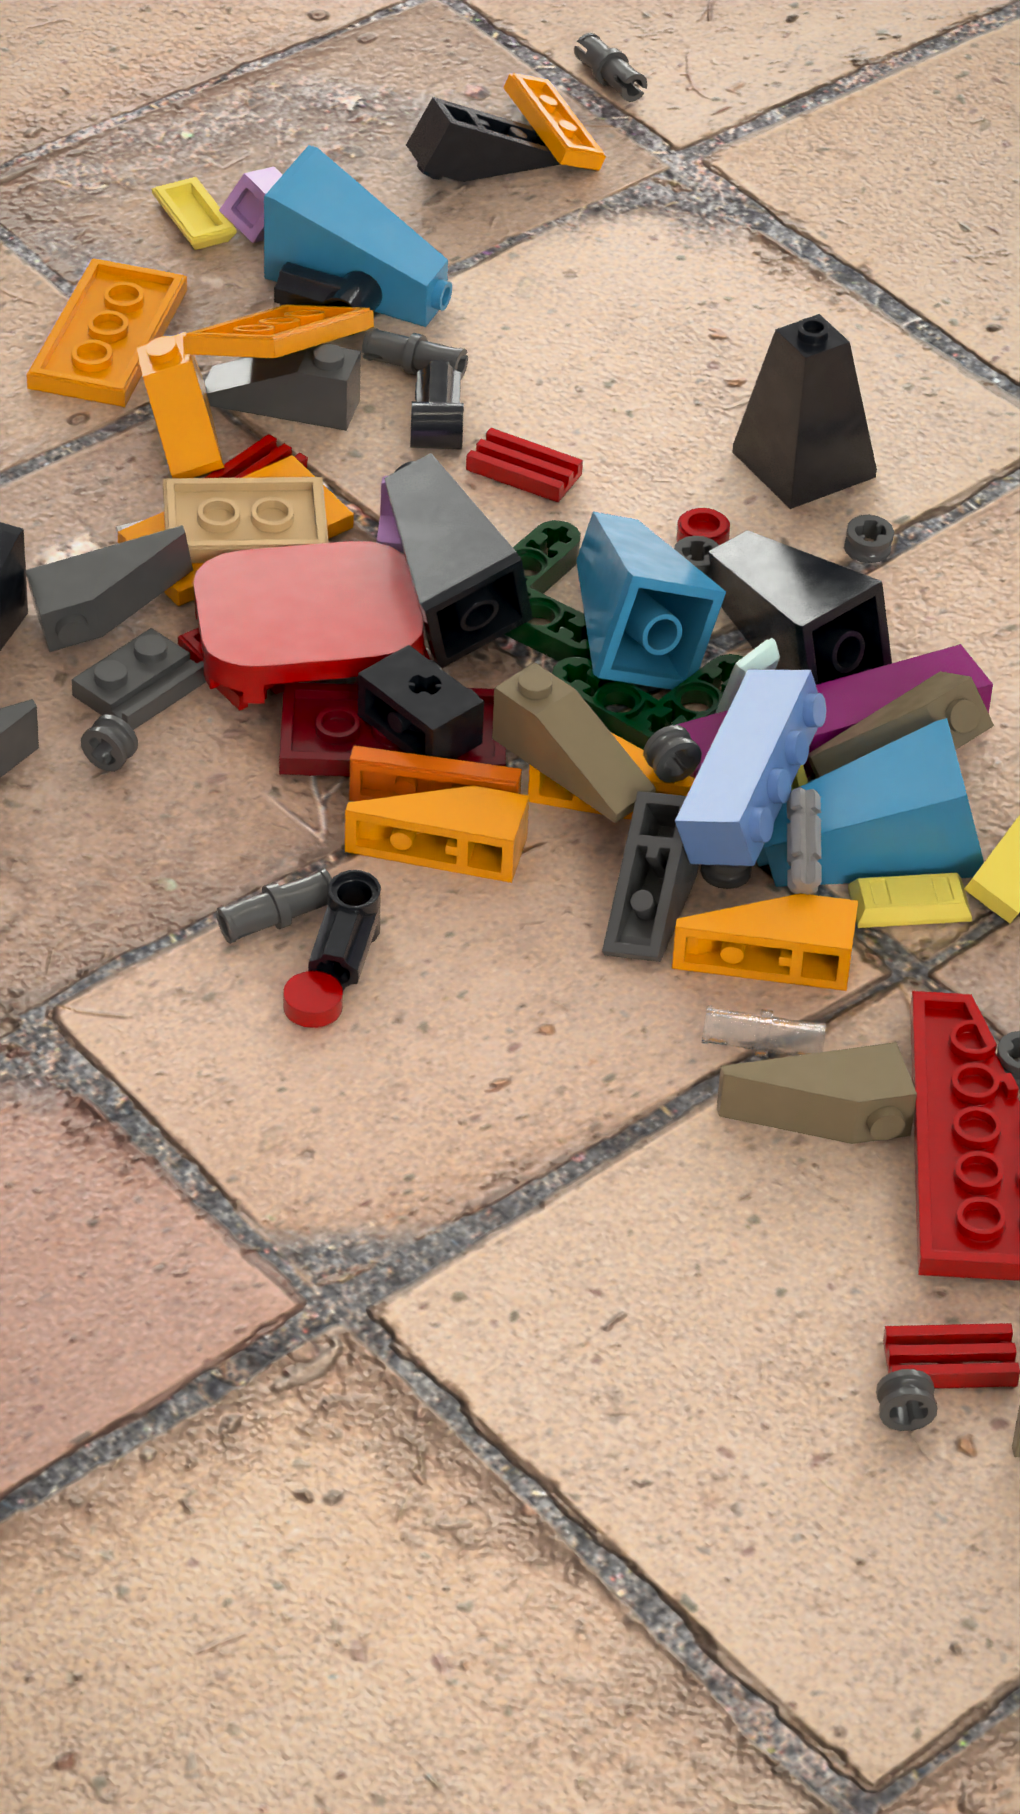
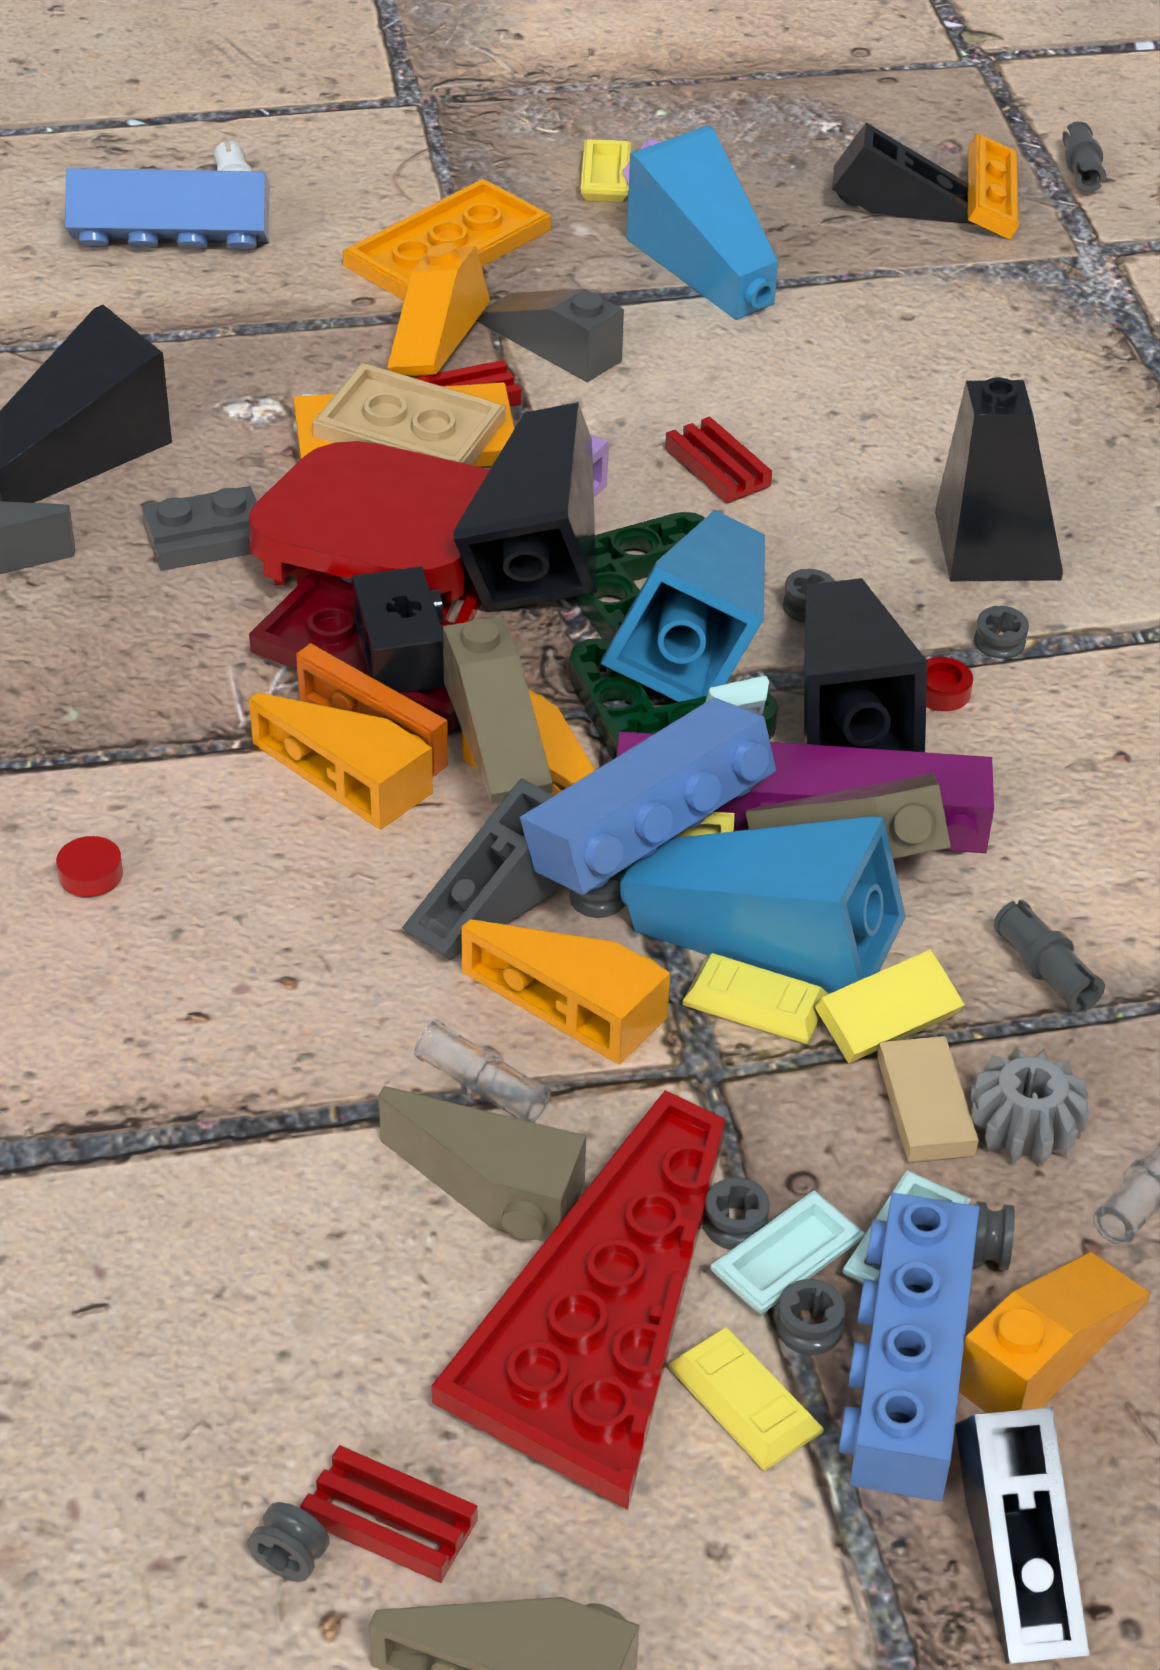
camera: 30 degrees right, 0 degrees up
(104, 587) = (231, 435): dark grey slope -> none
(109, 742) = (119, 569): dark grey bush -> none
(274, 906) = (131, 766): dark grey pin -> none
(278, 331) = (563, 271): light orange tile -> none
(311, 287) = (661, 271): black piece -> none
(347, 926) = (181, 806): black piece -> none
(410, 352) = (695, 335): dark grey pin -> none
(437, 408) = (670, 390): black piece -> none
(672, 753) = (586, 739): dark grey bush -> none
(704, 523) = (843, 564): red tile -> none
(804, 841) = (649, 889): light grey axle -> none

